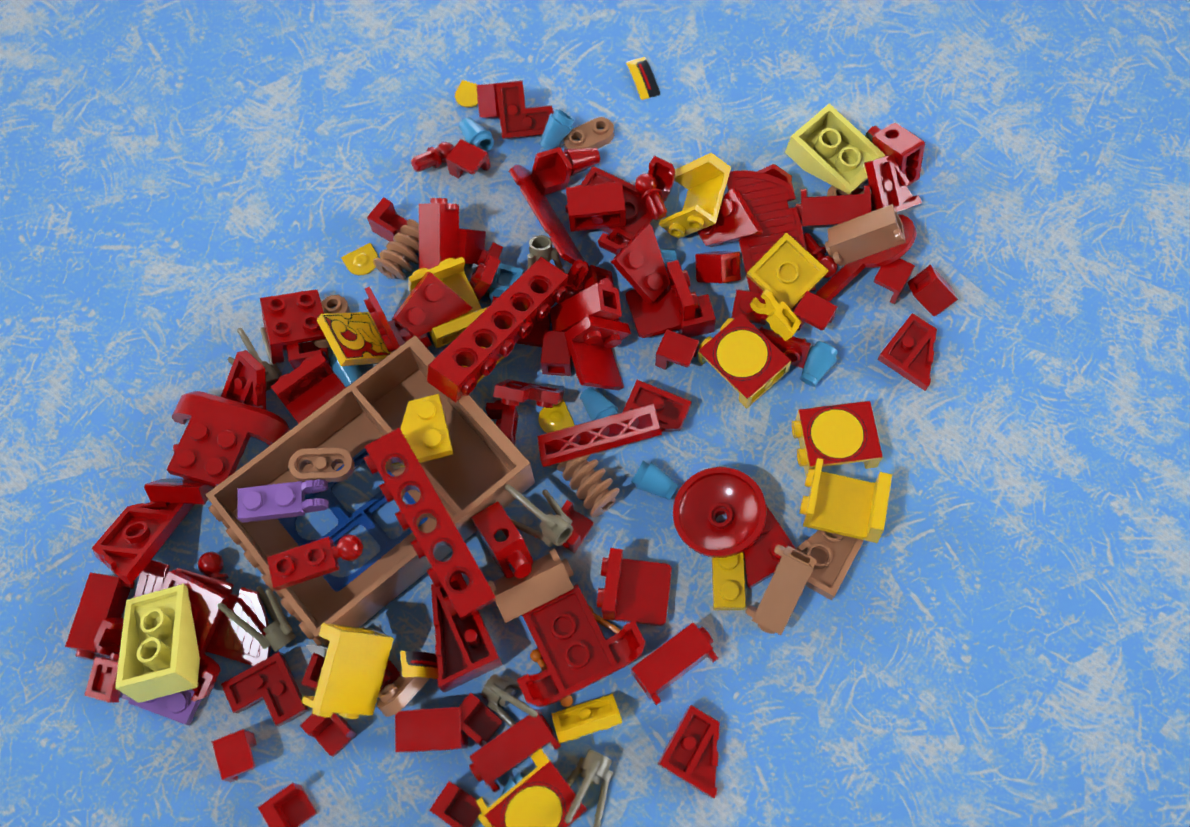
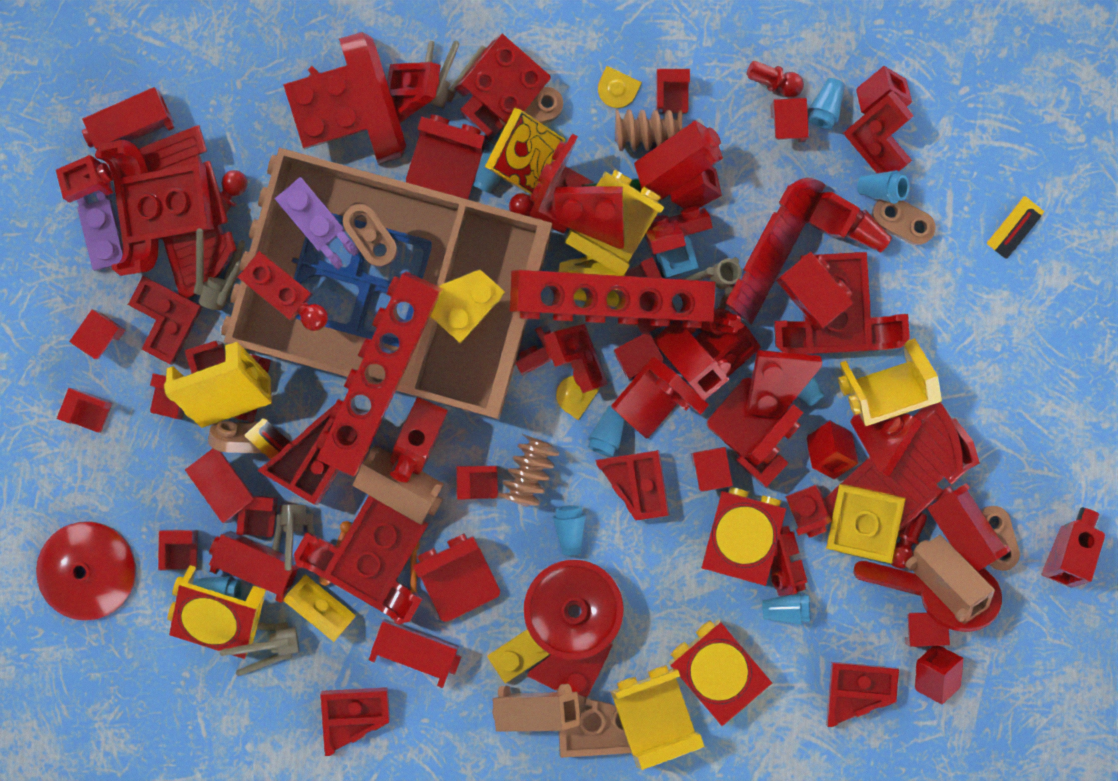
camera: 55 degrees right, 20 degrees up
(138, 536) = (215, 102): red wing -> none
(158, 646) = (134, 202): light yellow slope -> none
(177, 491) = (274, 99): red slope -> none
(466, 94) = (876, 55): yellow piece -> none
(555, 528) = (458, 474): dark tan plant -> none
(599, 435) = (577, 452): red fence -> none
(651, 196) = (873, 325): red axle -> none
(779, 317) = (806, 550): yellow plate -> none
(815, 311) = (837, 575): red panel -> none
(832, 150) = (1037, 492): light yellow slope -> none
(889, 184) = (1025, 570): red wing -> none

